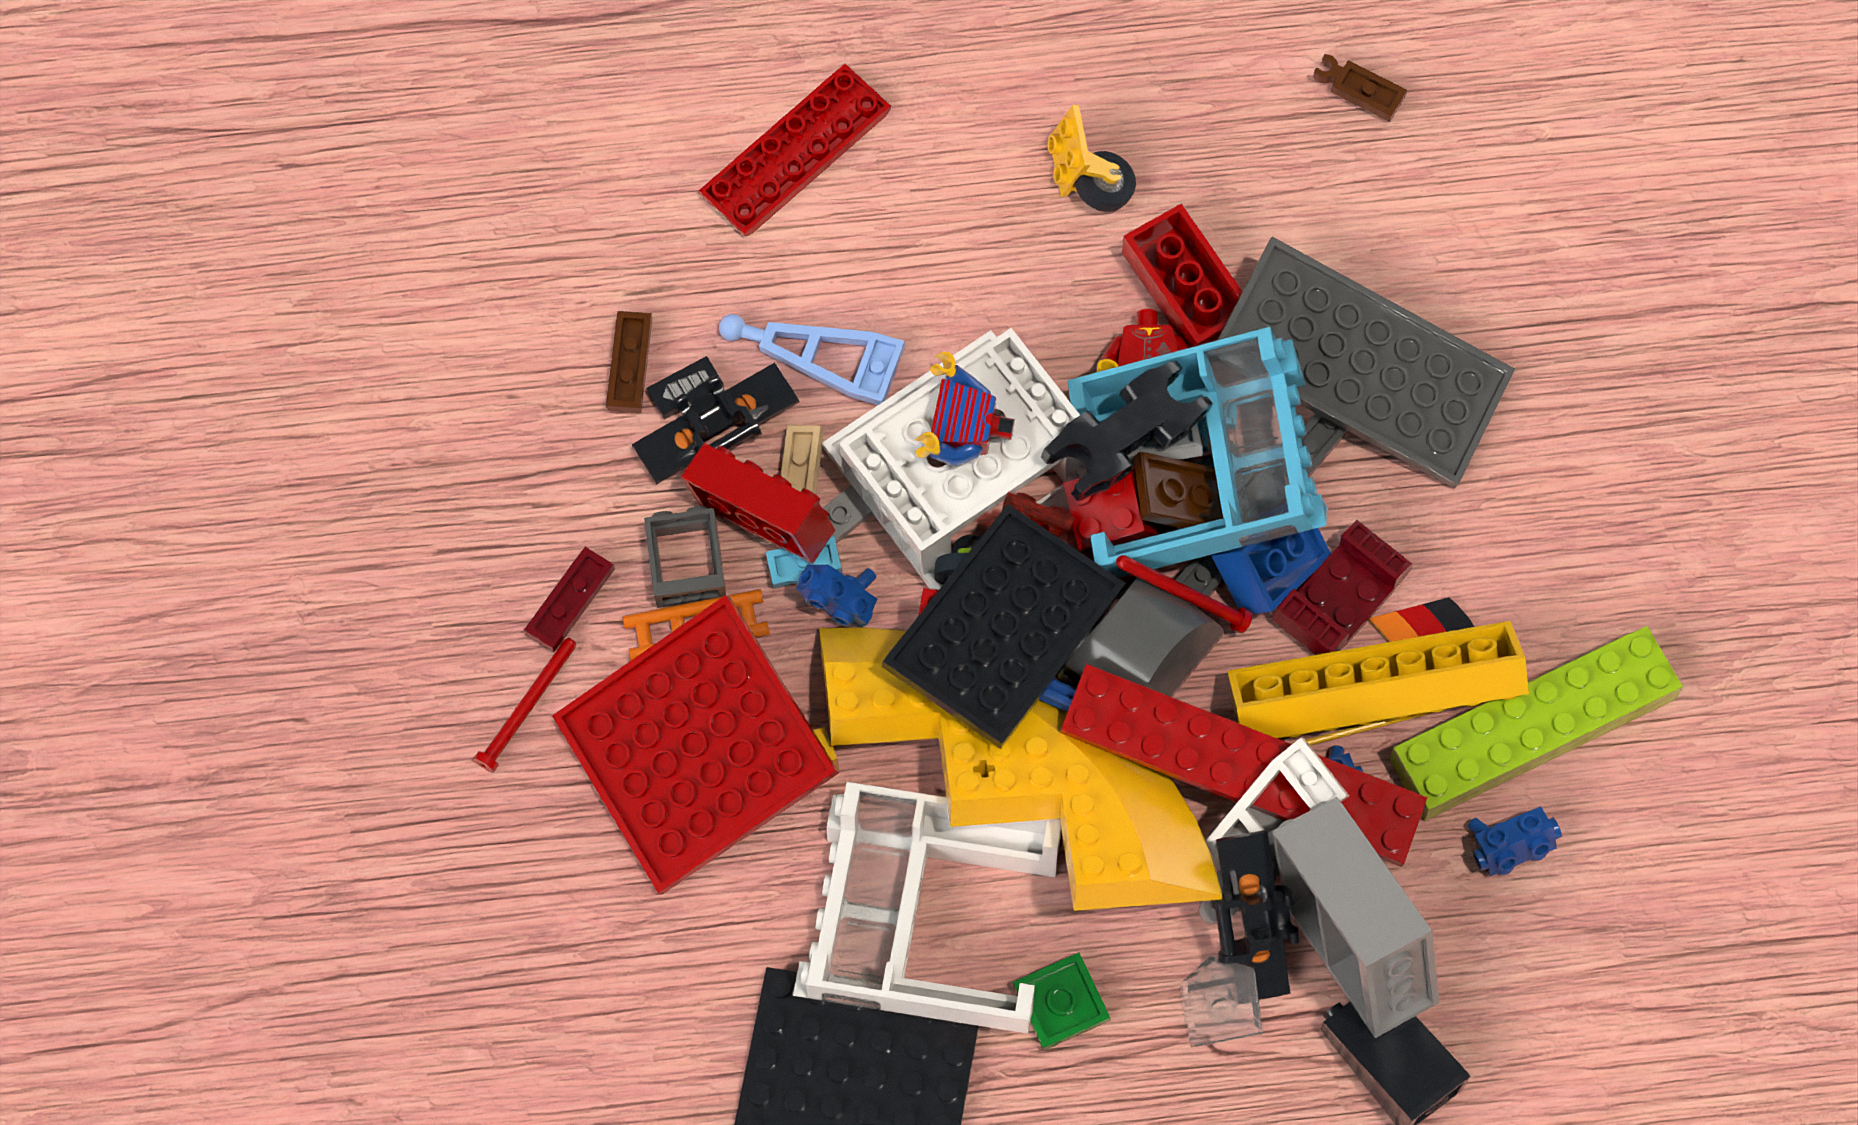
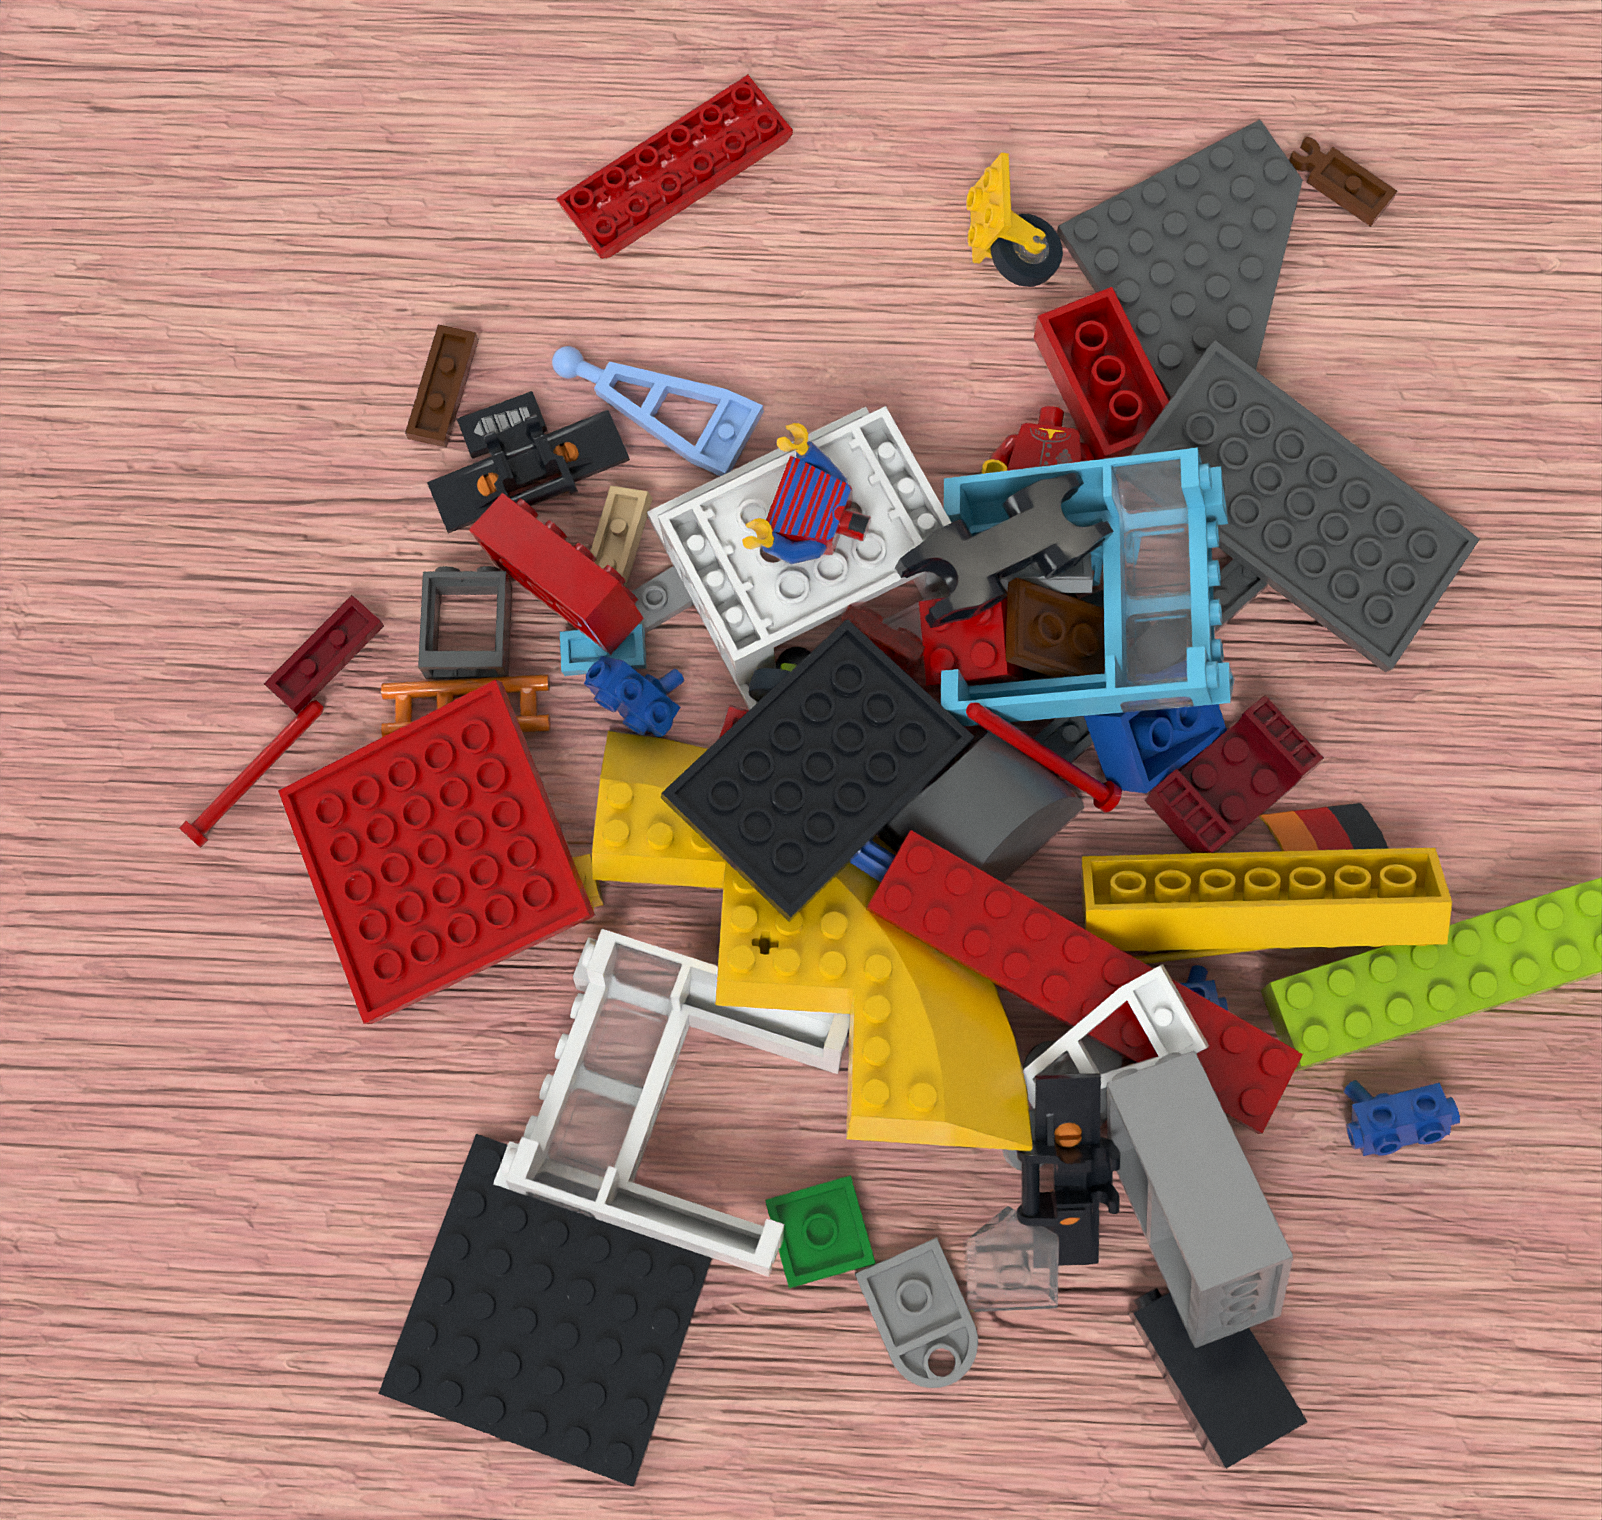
camera: 10 degrees right, 5 degrees up
(1151, 1052) = (919, 1312): none -> light grey tile
(1246, 162) = (1195, 250): none -> dark grey plate

